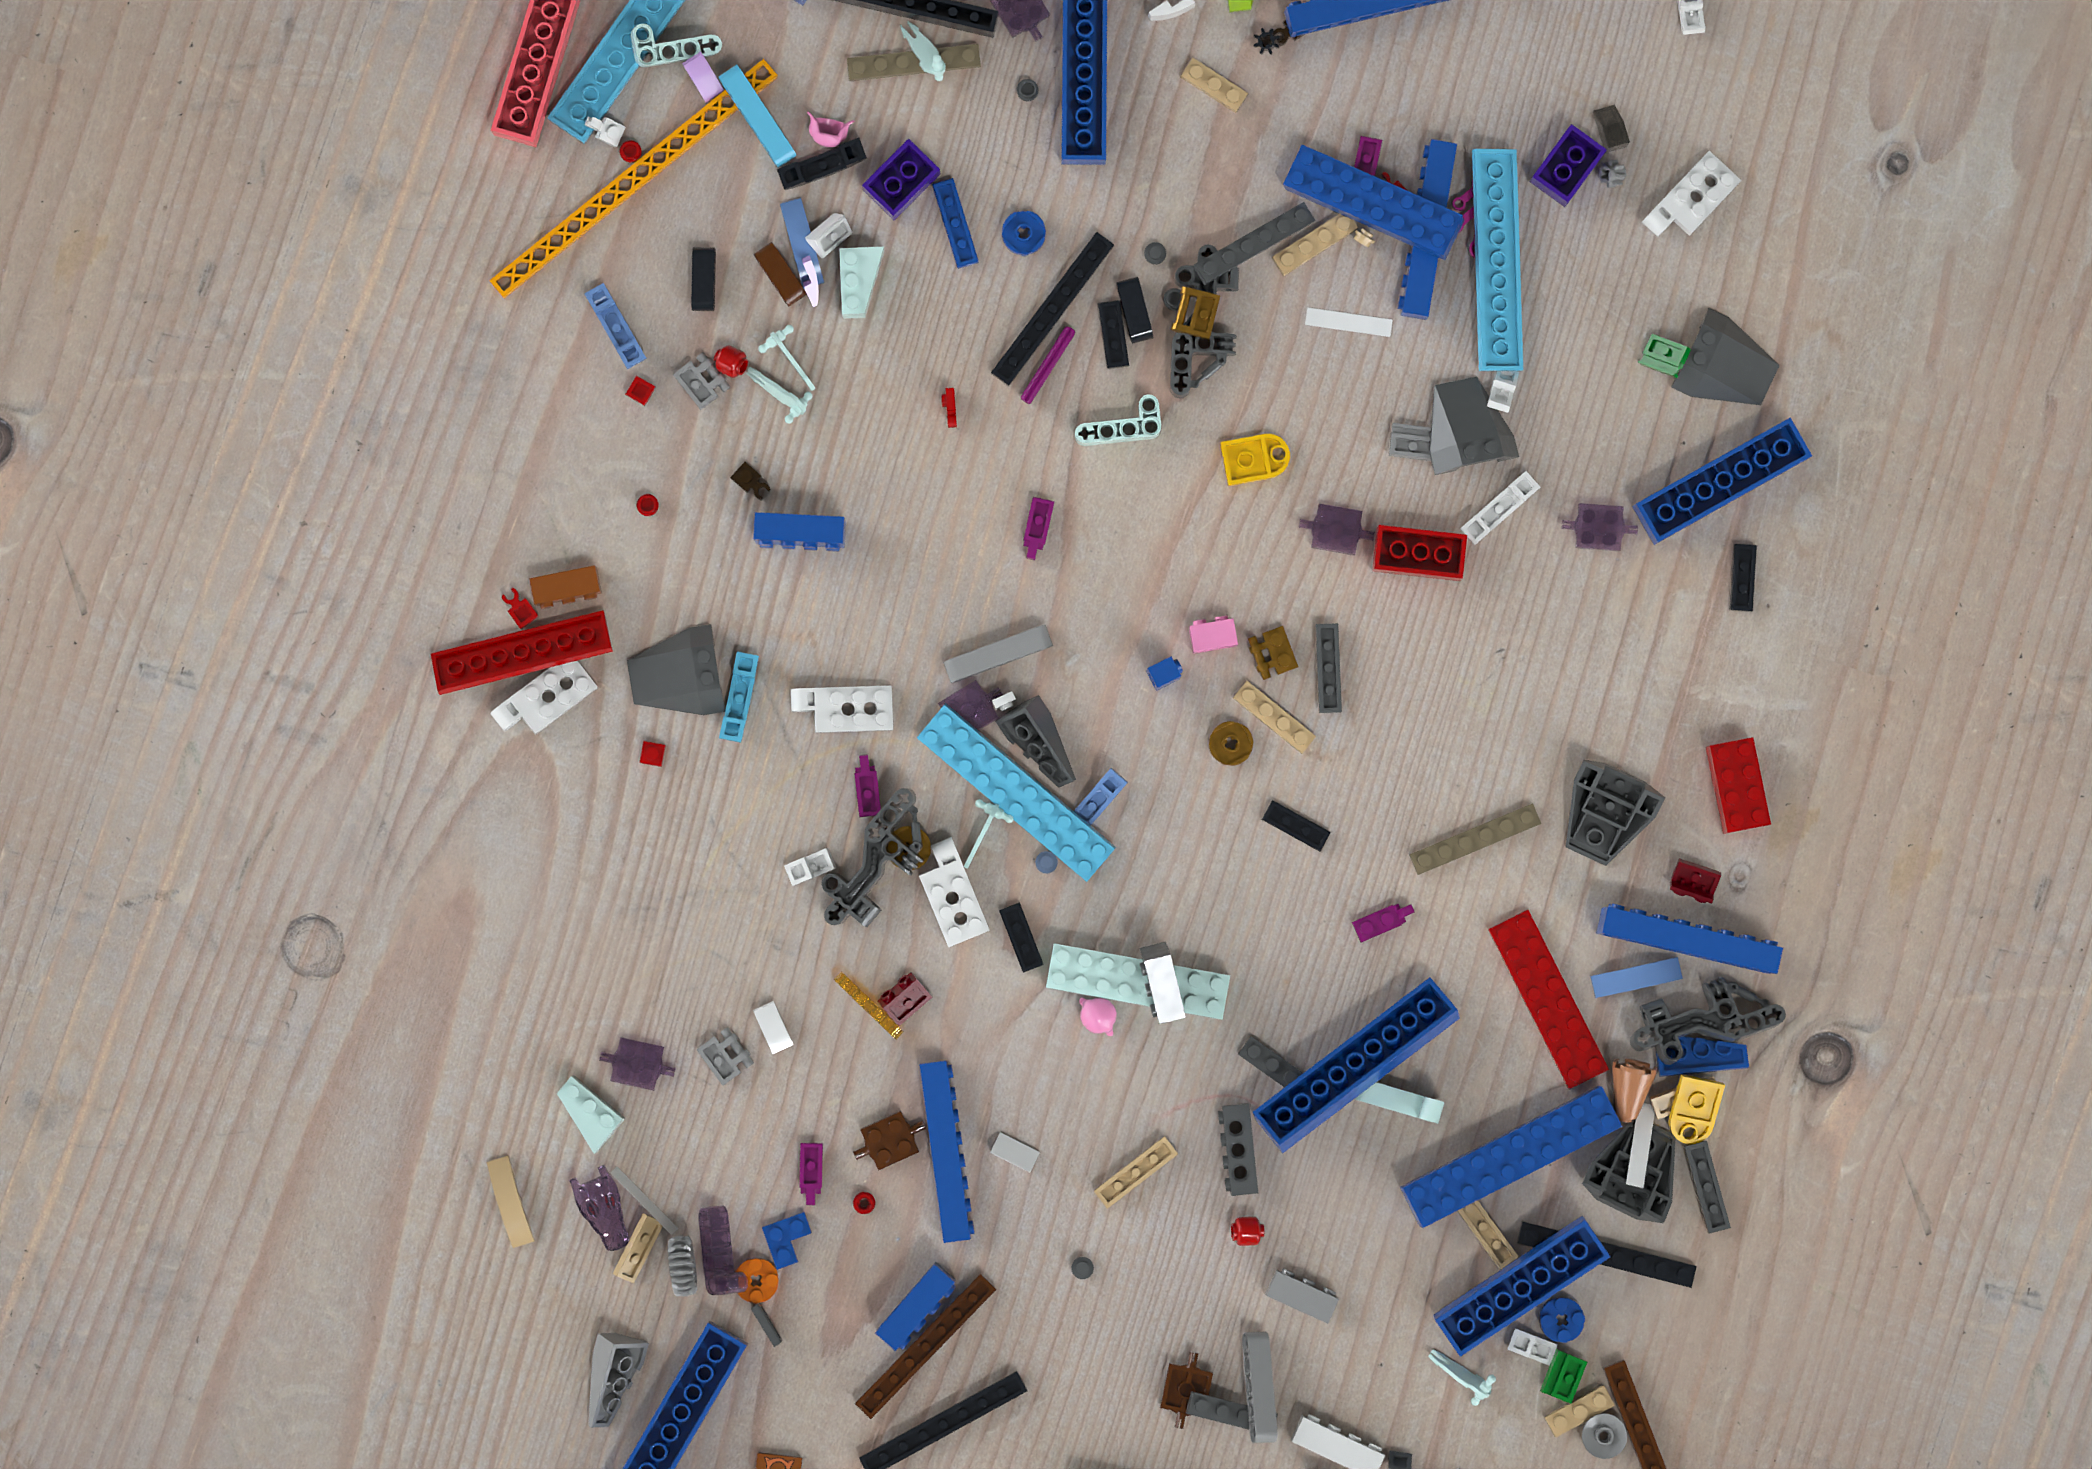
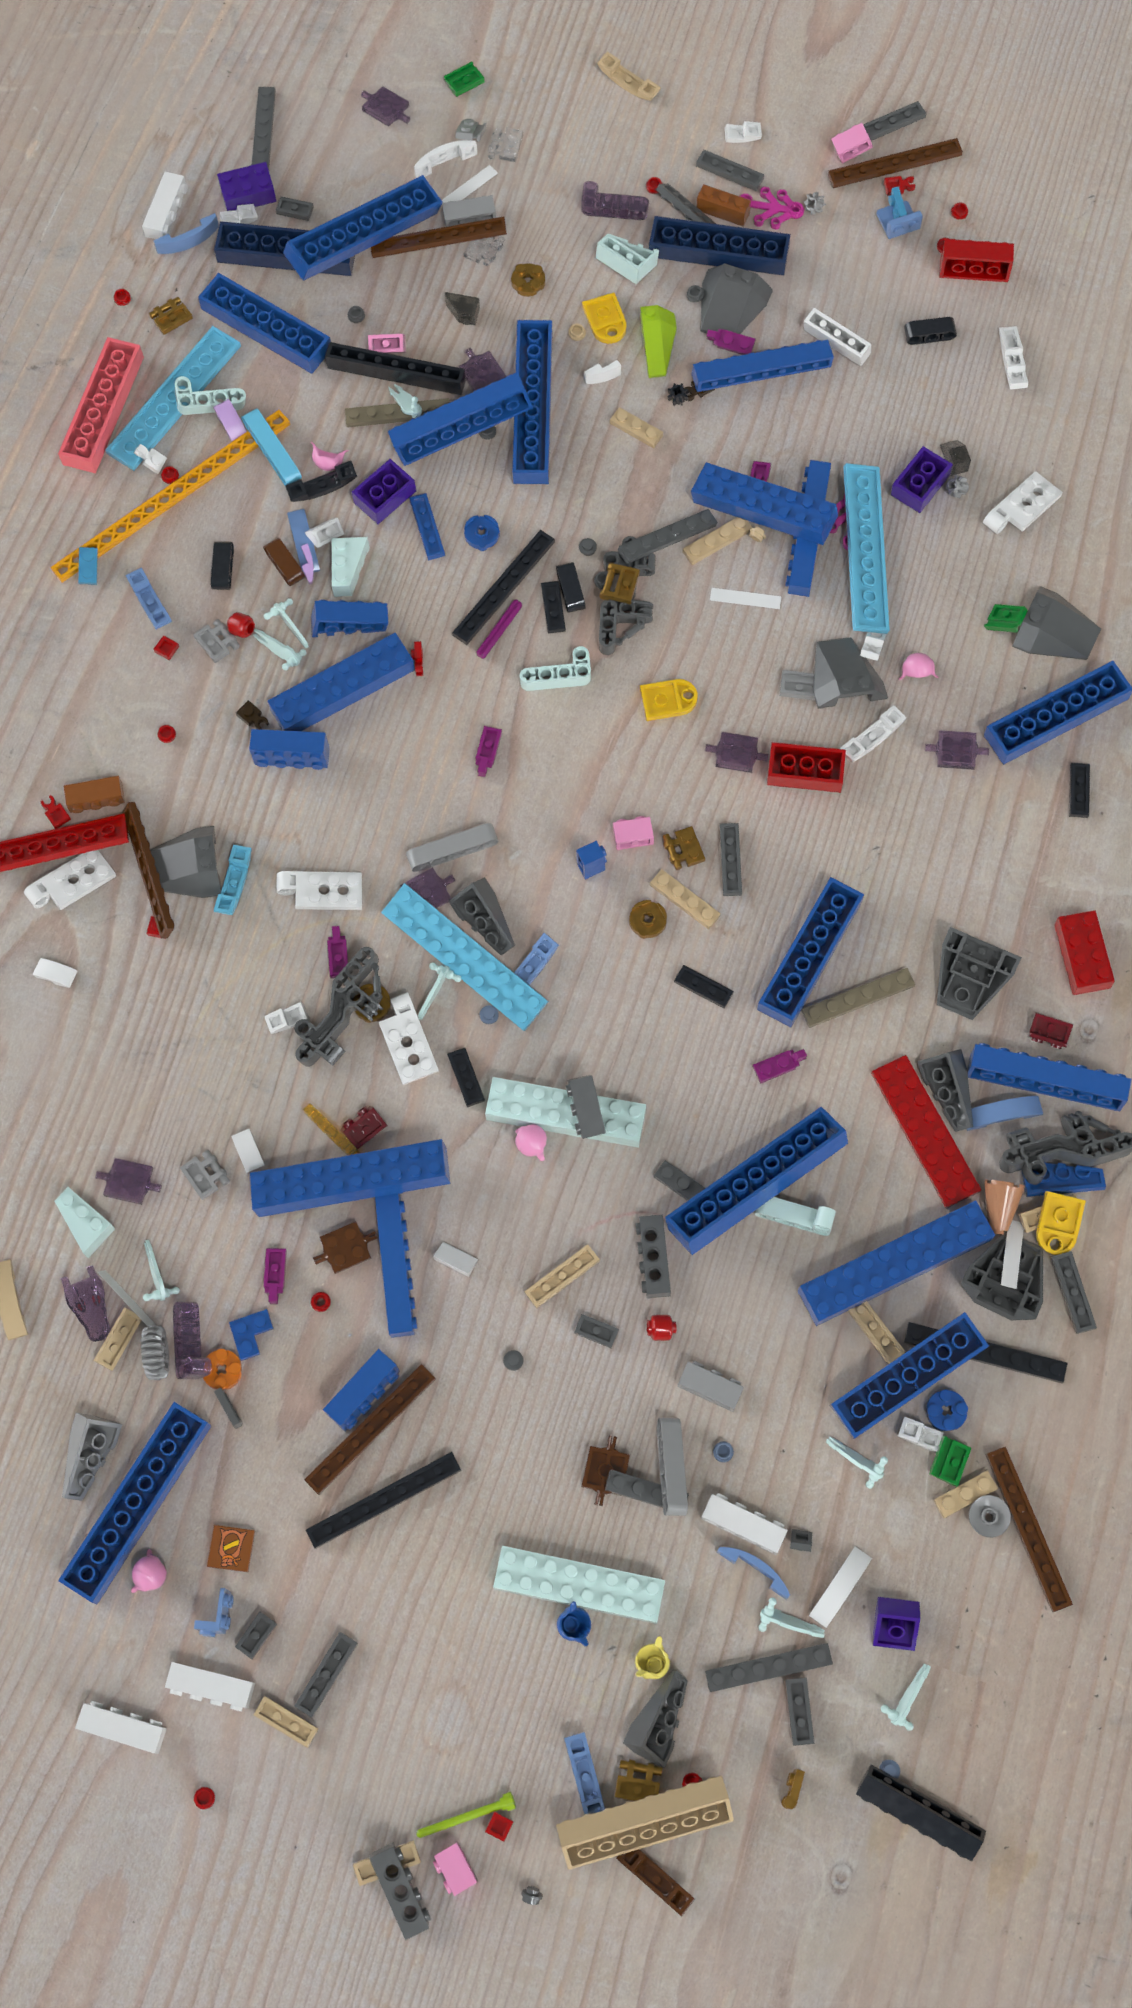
camera: 10 degrees right, 15 degrees down
(534, 812) = (55, 972): none -> white slope
(536, 279) = (88, 566): none -> dark azure plate
(637, 686) = (148, 871): none -> reddish brown plate
(683, 1194) = (160, 1292): none -> light aqua piece
(858, 443) = (342, 684): none -> blue brick
(864, 352) = (348, 617): none -> blue wedge
(893, 1065) = (349, 1178): none -> blue brick
(995, 86) = (460, 419): none -> blue brick
(1004, 702) = (456, 884): white plate -> none
(1175, 1234) = (596, 1331): none -> dark grey plate
(1315, 1367) = (723, 1452): none -> sand blue plate
(1421, 786) = (810, 952): none -> blue brick
(1556, 418) = (918, 666): none -> bright pink hair
(1576, 940) = (949, 1082): none -> dark grey wedge

